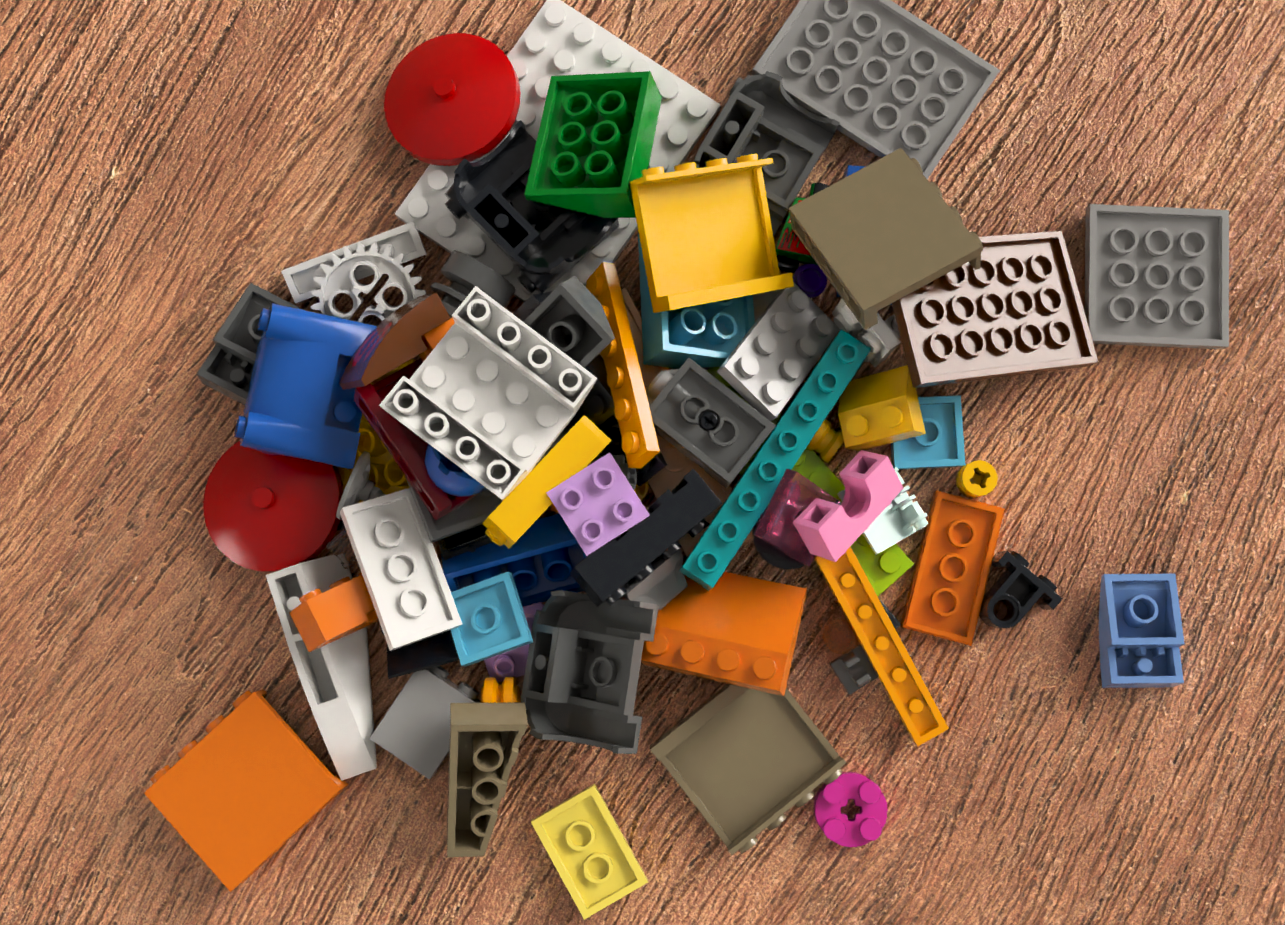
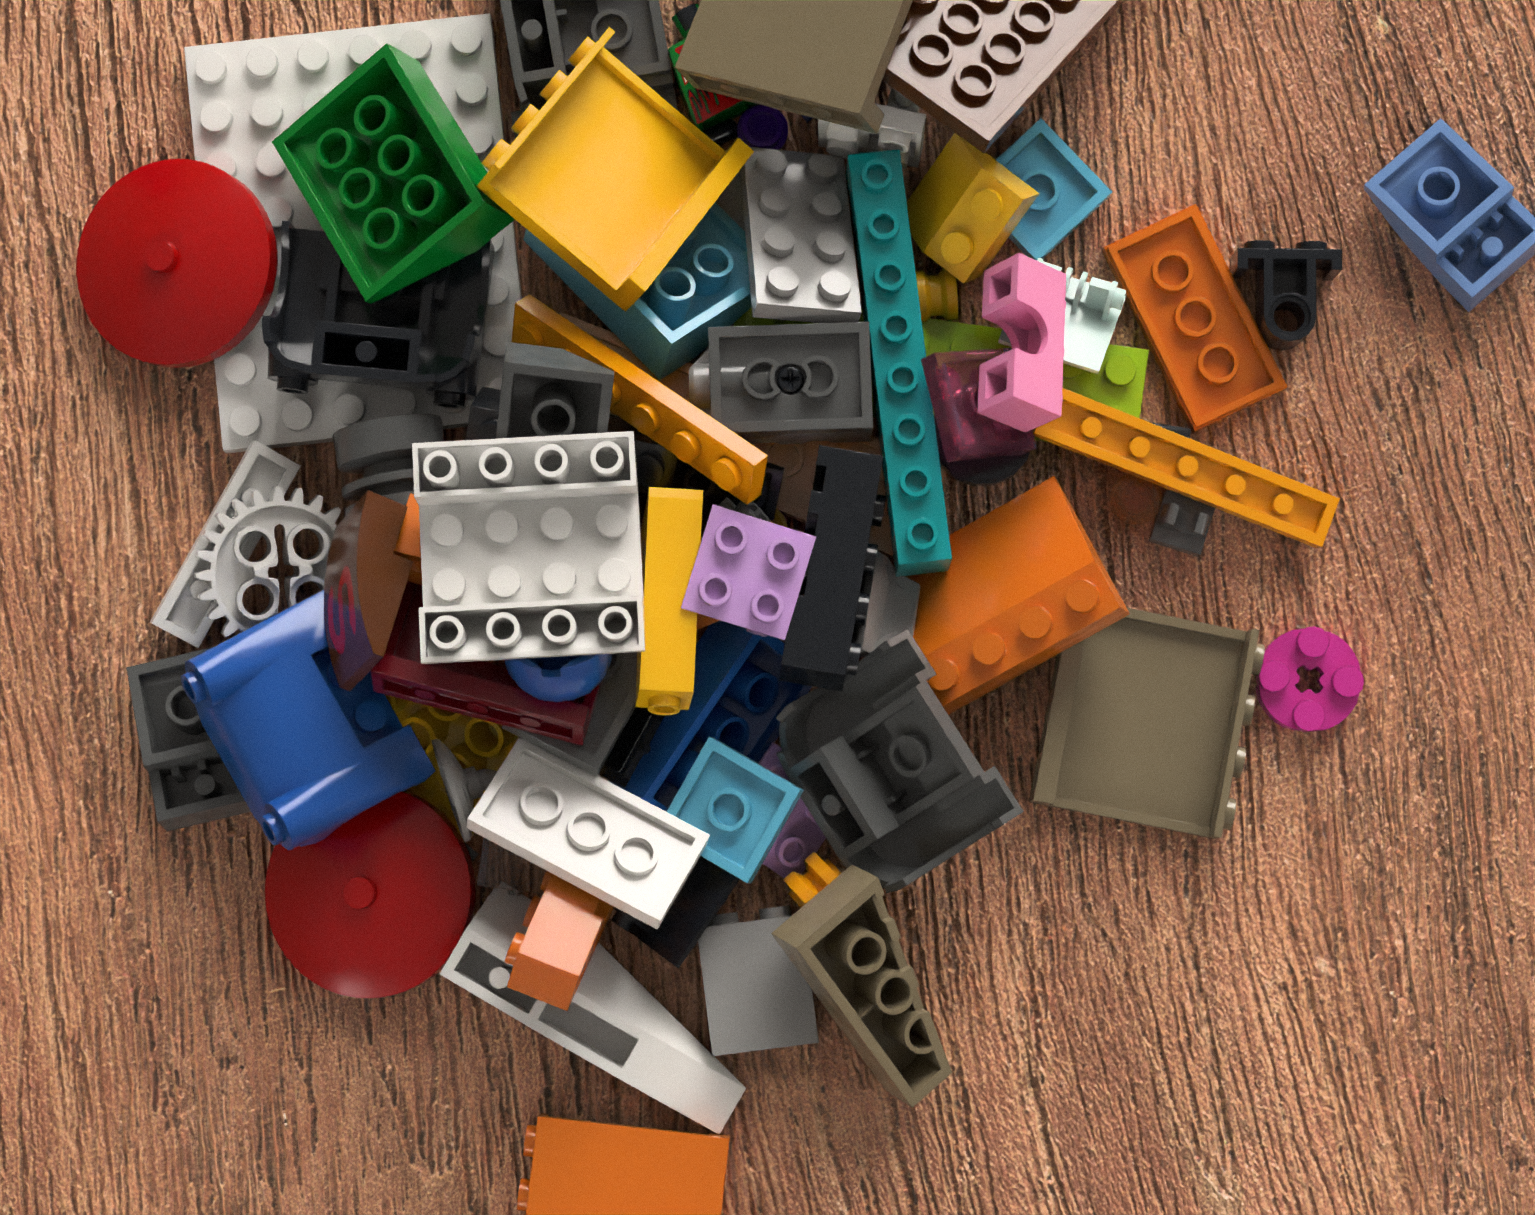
camera: 40 degrees left, 0 degrees up
(589, 851) = (1062, 972): light yellow plate -> none
(969, 482) = (1132, 207): yellow wheel -> none

